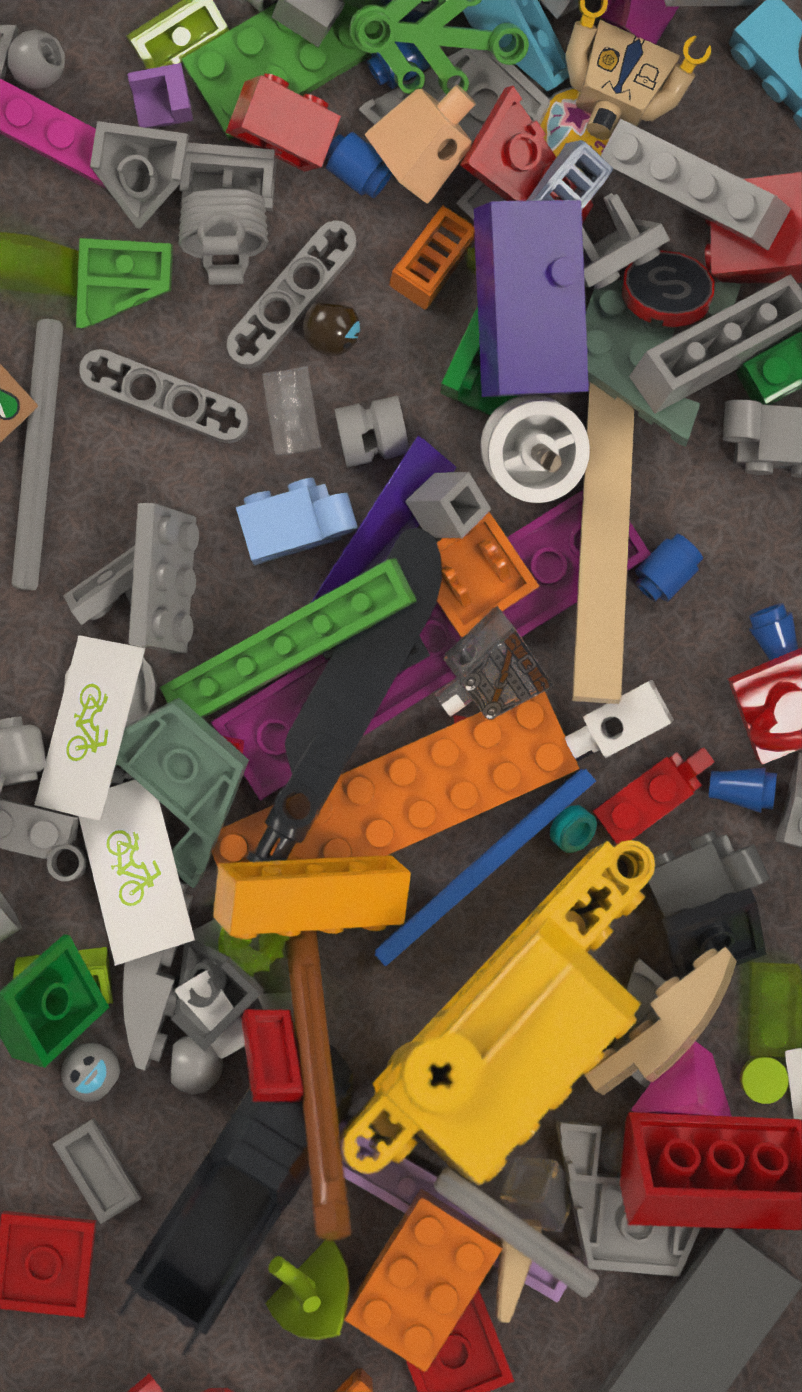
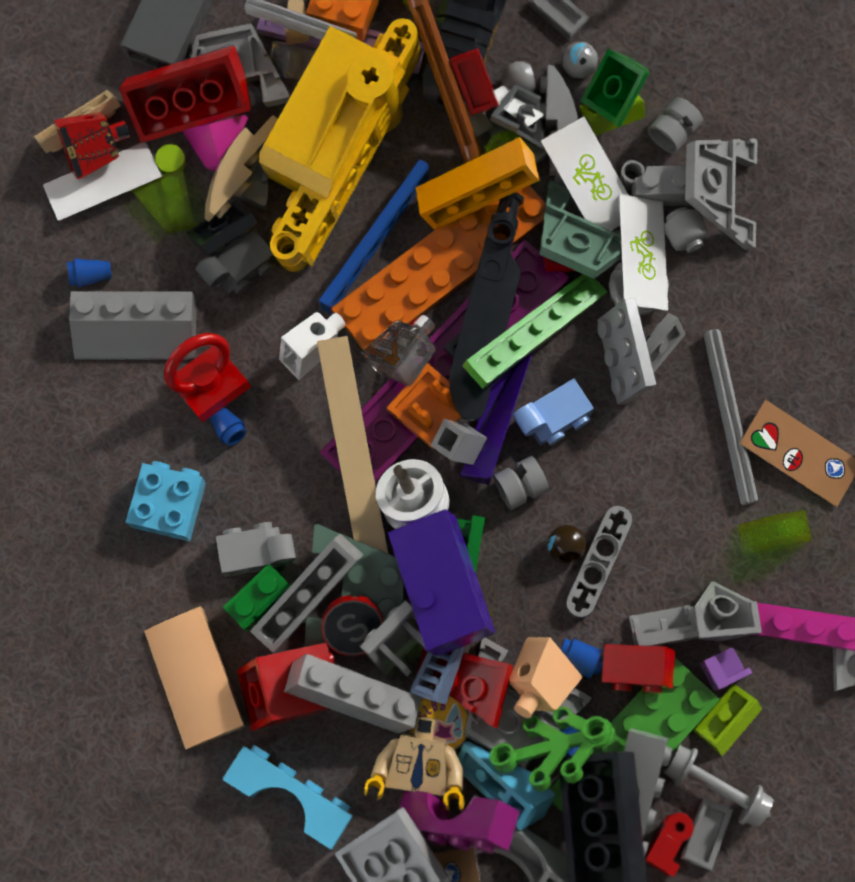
camera: 165 degrees right, 10 degrees down
(36, 59) = (815, 670): light grey piece -> none
(119, 277) = (714, 543): bright green wing -> none
(167, 390) = (661, 468): light grey beam -> none
(223, 224) = (662, 594): light grey piece -> none
(291, 411) = (576, 481): clear hips -> none
(417, 280) = (521, 587): orange slope -> none
(573, 829) = (325, 272): teal tile -> none
(651, 795) = (281, 308): red hinge -> none
(668, 568) = (306, 447): blue brick -> none
(744, 788) = (224, 324): blue cone -> none

